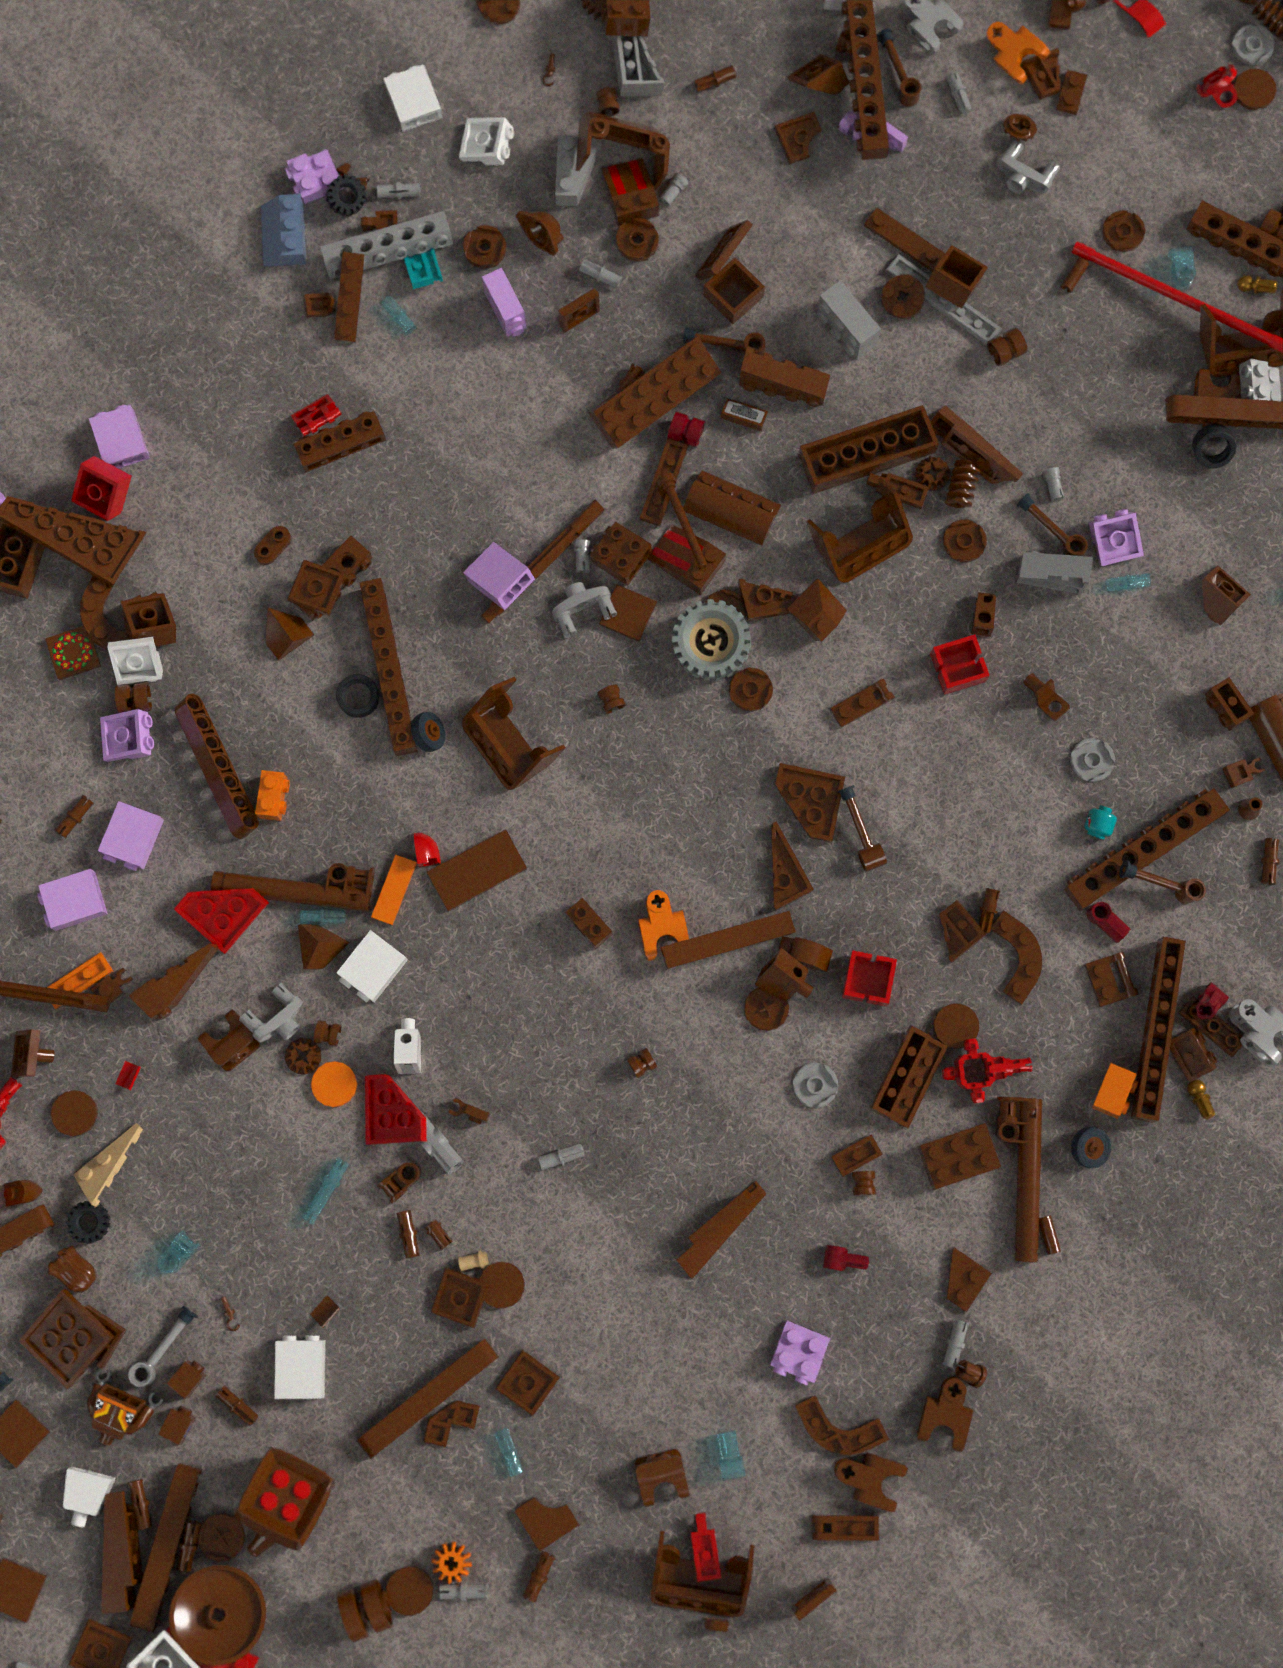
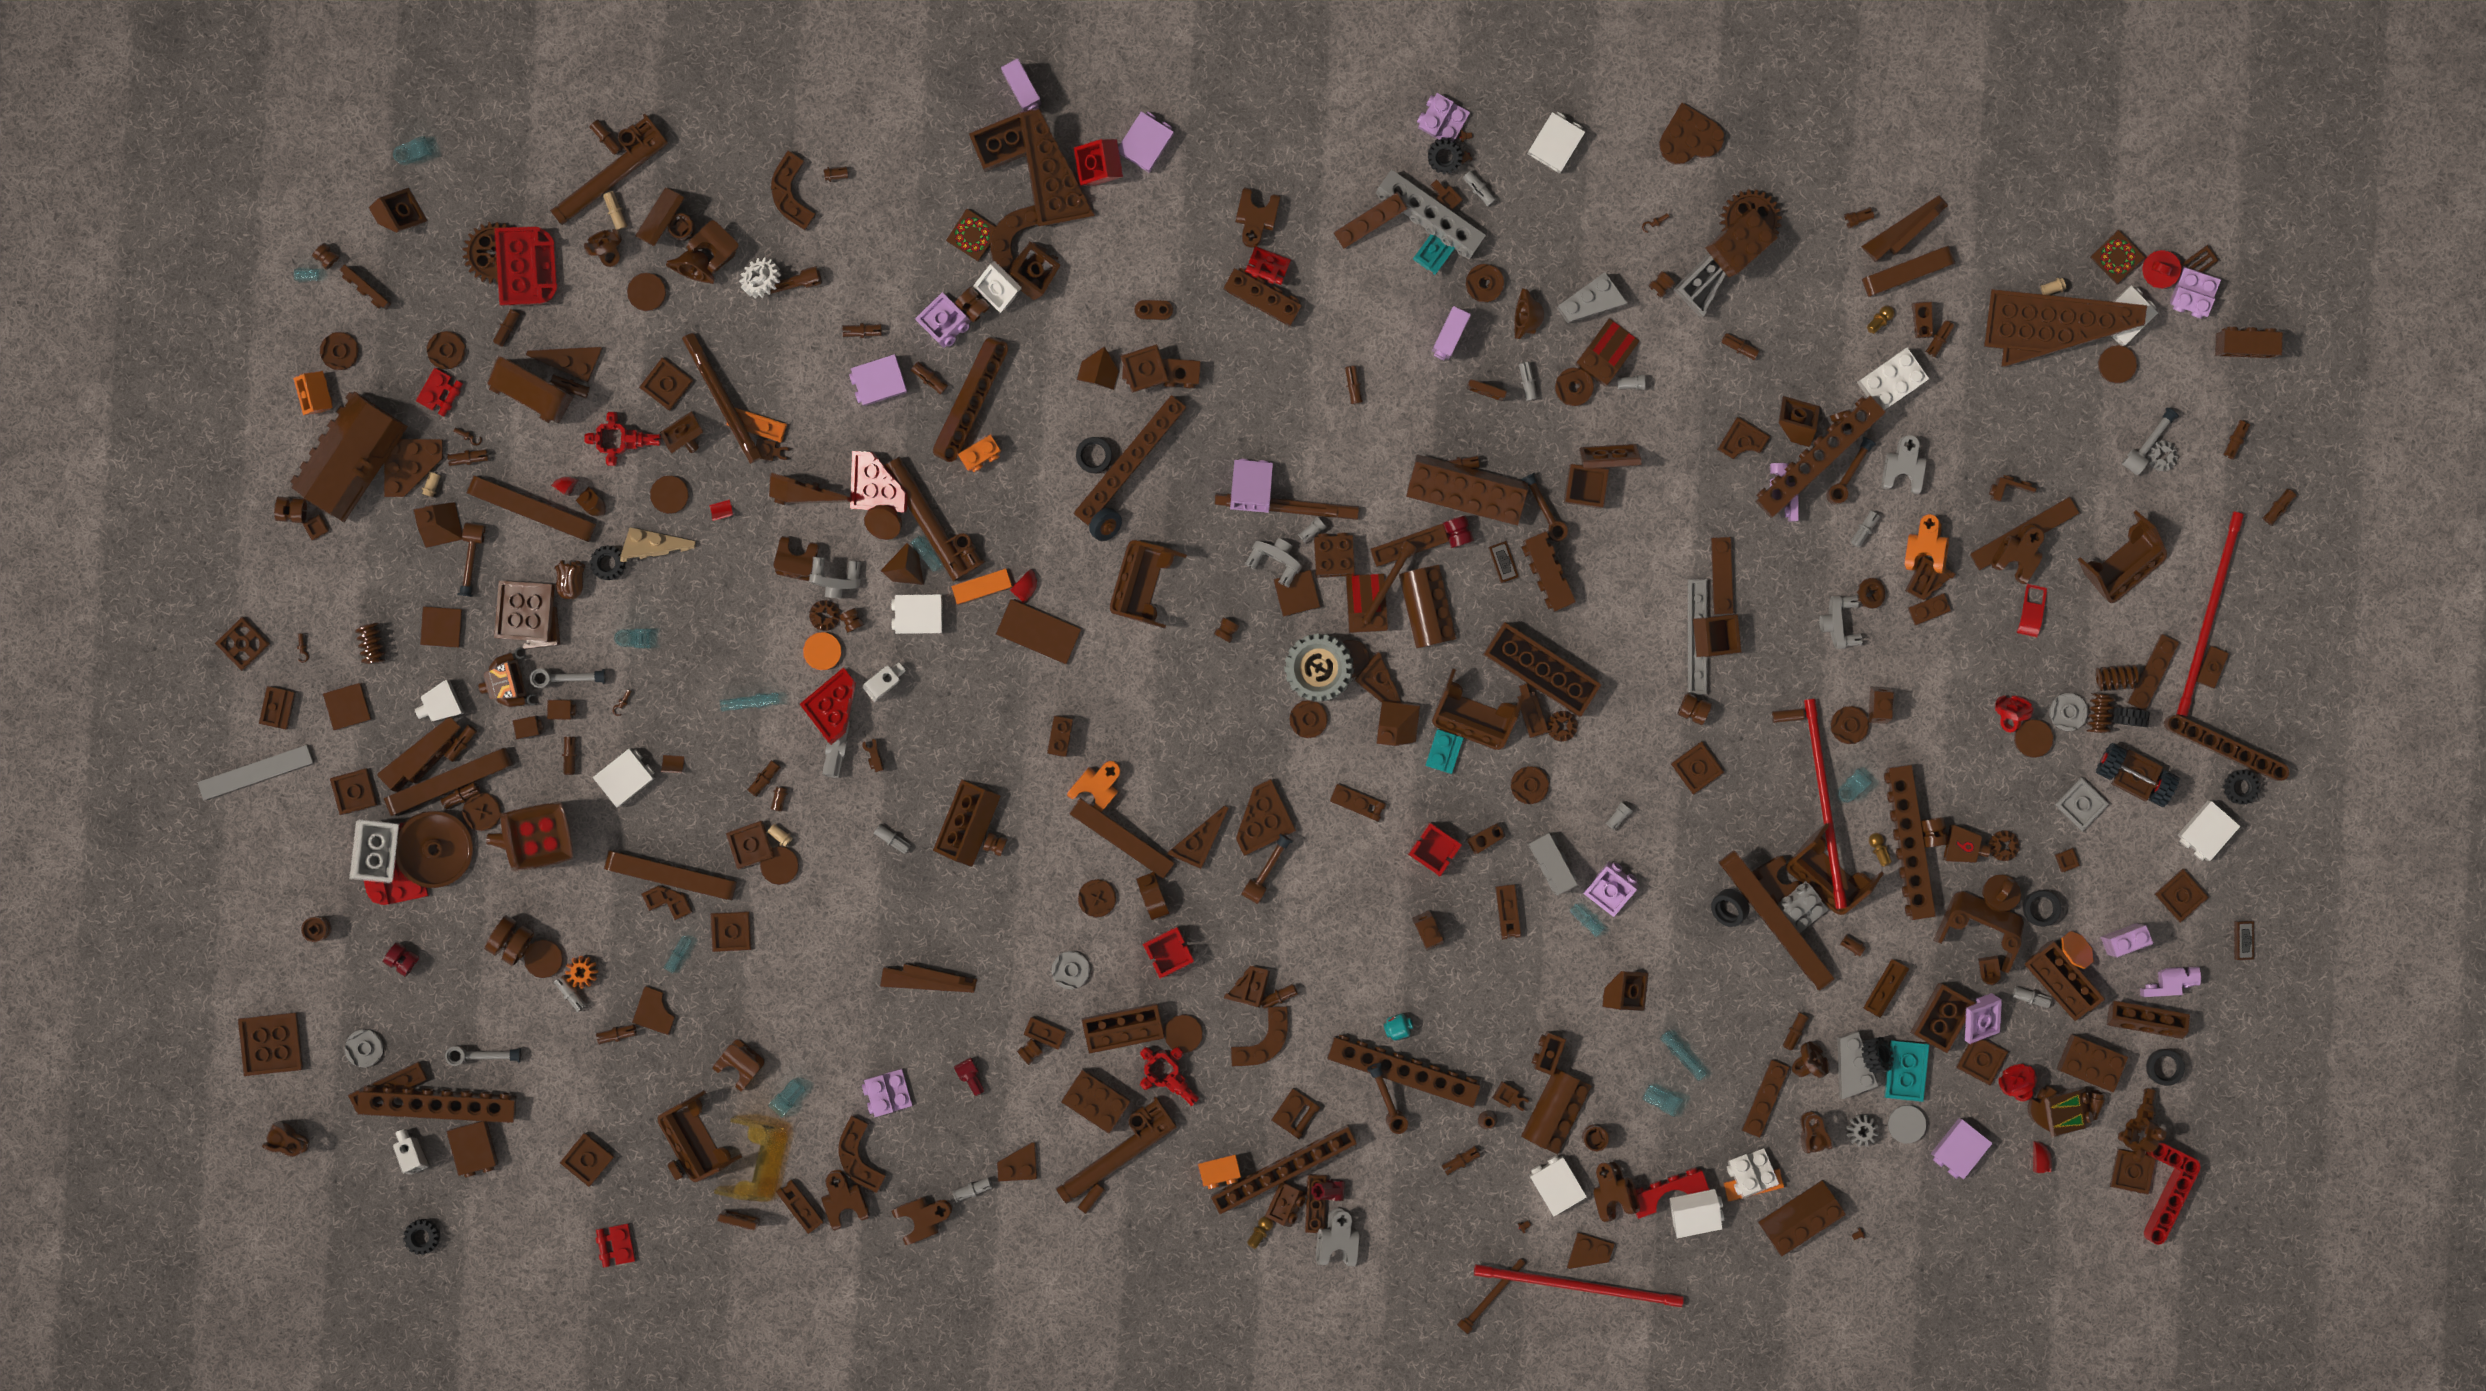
camera: 50 degrees right, 10 degrees up
(72, 900) = (805, 376): lavender brick -> none
(167, 789) = (929, 378): none -> reddish brown pin
(261, 932) = (883, 522): none -> reddish brown tile
(265, 395) = (1256, 218): none -> reddish brown piece
(283, 231) = (1384, 131): sand blue slope -> none
(318, 304) = (1350, 201): reddish brown plate -> none
(398, 315) = (1387, 263): clear light blue axle -> none
(399, 1182) = (790, 746): reddish brown piece -> none
(482, 423) = (1353, 384): none -> reddish brown axle
(486, 140) = (1564, 221): white plate -> none
(601, 1074) = (966, 823): none -> reddish brown slope
(624, 132) = (1631, 296): reddish brown windscreen -> none
(705, 1551) = (715, 1128): red plate -> none
(763, 1503) = (772, 1144): none -> clear yellow windscreen
(784, 976) = (1125, 894): reddish brown torso -> none
(848, 320) = (1624, 583): light grey brick -> none
(875, 592) = (1444, 751): none -> teal plate
(904, 284) = (1681, 617): reddish brown plate -> none
(961, 484) = (1567, 754): reddish brown piece -> none
(971, 446) = (1601, 740): reddish brown wedge -> none
(971, 1373) = (960, 1214): reddish brown bush -> none
(1027, 504) = (1589, 809): reddish brown piece -> none
(1030, 726) = (1428, 930): none -> reddish brown torso
(1046, 695) = (1459, 923): reddish brown bracket -> none
(1061, 386) = (1697, 768): none -> reddish brown tile
(1067, 644) = (1508, 911): none -> reddish brown plate
(1091, 1147) = (1169, 1183): black wheel -> none
(1092, 760) = (1439, 989): light grey tile -> none
(1110, 922) = (1332, 1084): dark red piece -> none
(1128, 189) = (1880, 705): none -> reddish brown torso

